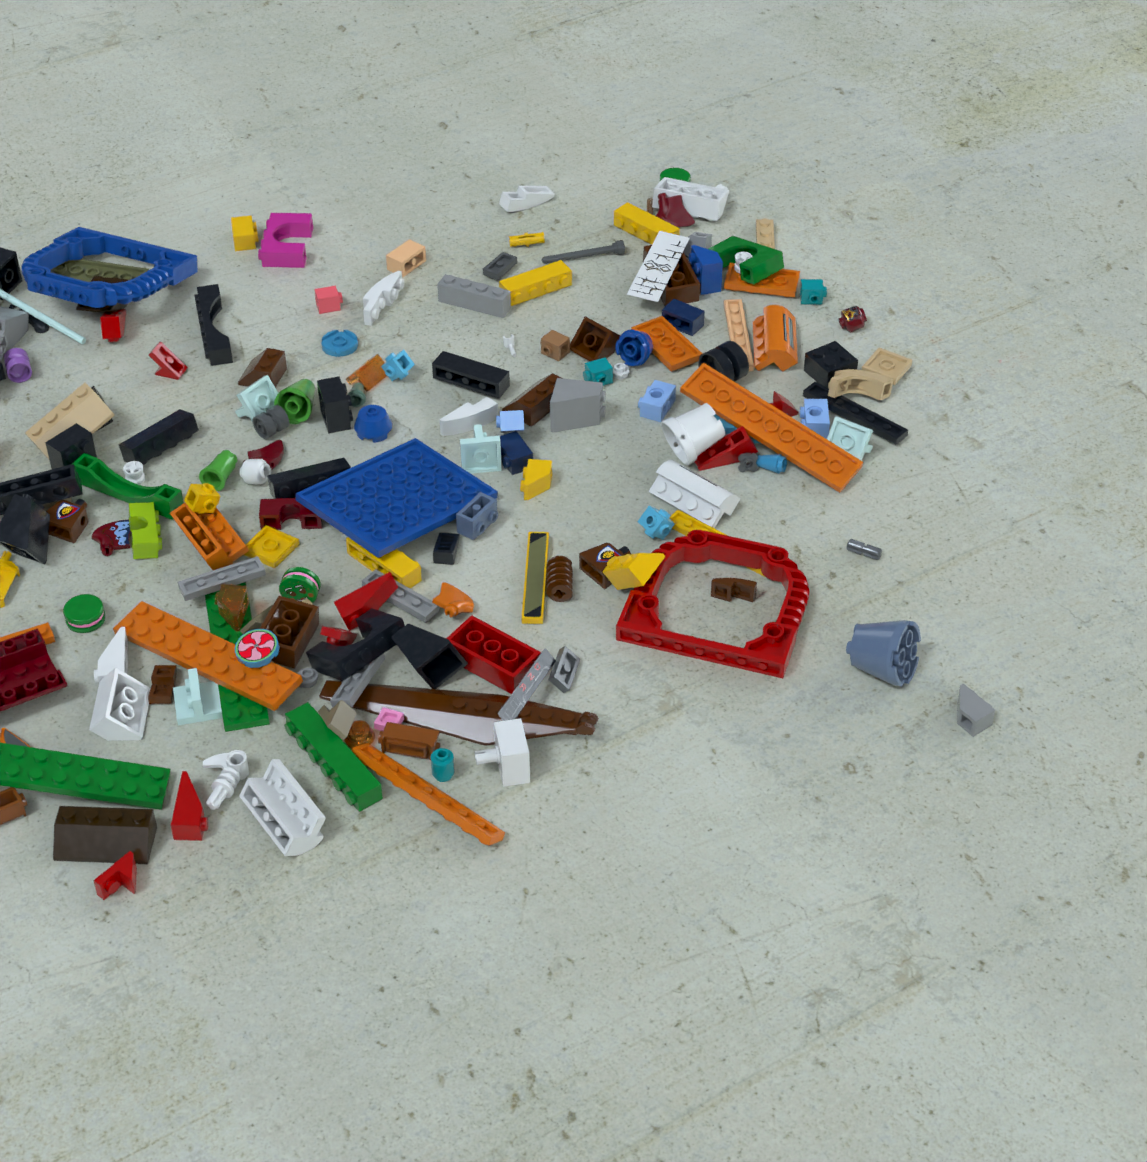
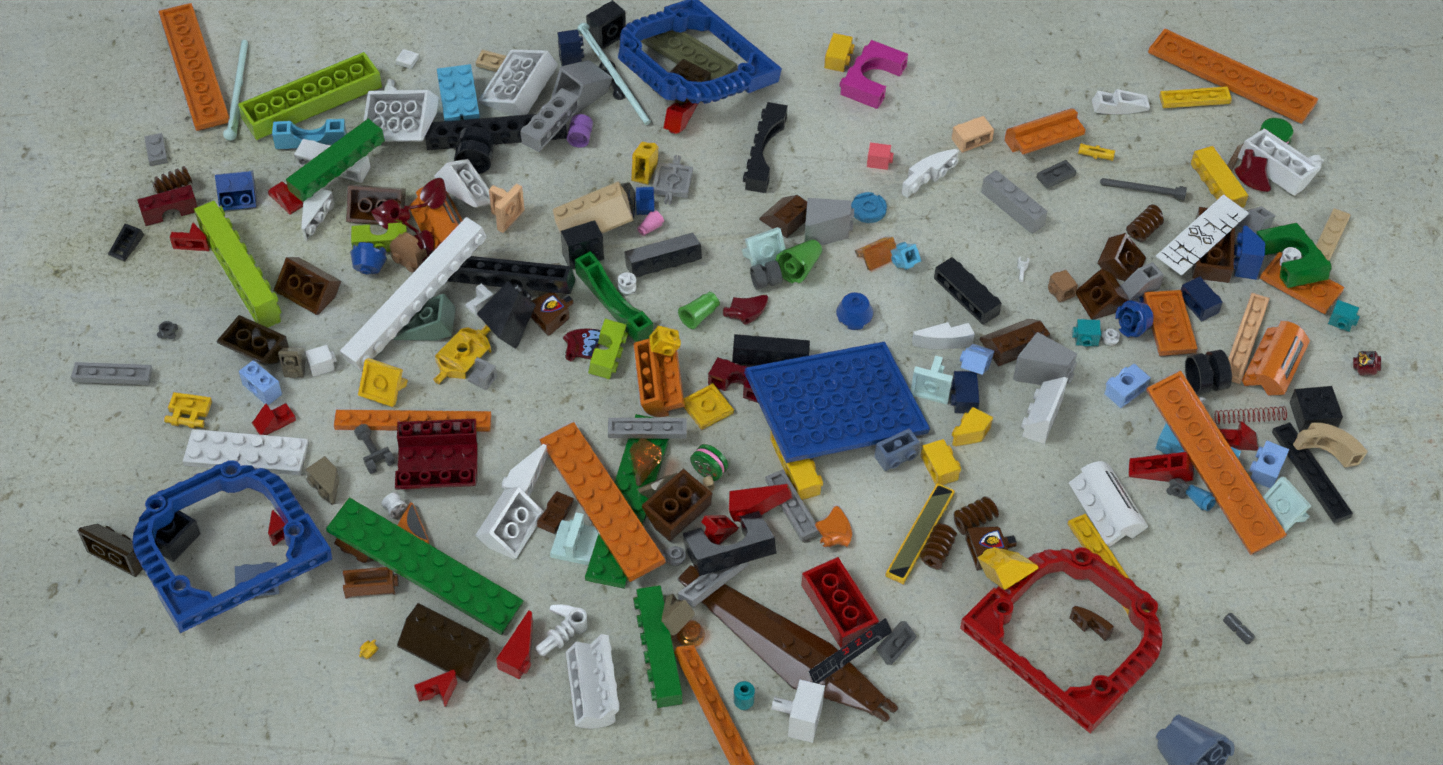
camera: 25 degrees right, 10 degrees up
(22, 593) = (483, 374): none -> light grey panel
(24, 871) = (368, 649): none -> yellow plate
(84, 613) = (523, 414): green head -> none
(98, 365) = (647, 156): none -> yellow torso
(115, 400) = (644, 200): none -> blue panel
(131, 417) = (650, 223): none -> bright pink cone
(134, 377) = (672, 180): none -> light grey plate
(169, 363) = (706, 174): red slope -> none
(255, 471) = (728, 323): white head -> none
(257, 648) = (639, 516): tile -> none
(308, 358) = (828, 220): none -> light grey slope
(334, 404) = (828, 279): black brick -> none
(357, 395) = (855, 272): sand green cone -> none
(388, 715) = (721, 630): bright pink plate -> none
(408, 740) = (728, 658): dark orange window -> none
(429, 654) = (779, 583): black slope -> none
(445, 548) = (850, 480): black slope -> none
(470, 236) = (1044, 131): none -> orange brick
(522, 514) = (940, 462): none -> yellow brick
(537, 282) = (1080, 206): yellow brick -> none
(580, 540) = (975, 513): none -> reddish brown piece
(589, 175) = (1195, 97): none -> yellow plate
(594, 441) = (1044, 410): none -> white slope
(597, 307) = (1121, 257): none -> reddish brown slope
(602, 276) = (1145, 223): none -> reddish brown piece
(612, 151) = (1234, 75): none -> orange plate
(626, 316) = (1143, 280): none -> light grey slope
(656, 522) = (1055, 521): medium azure brick -> none
(693, 432) = (1138, 440): white piece -> none
(782, 385) = (1249, 415): none -> piece
(888, 364) = (1373, 430): tan plate -> none

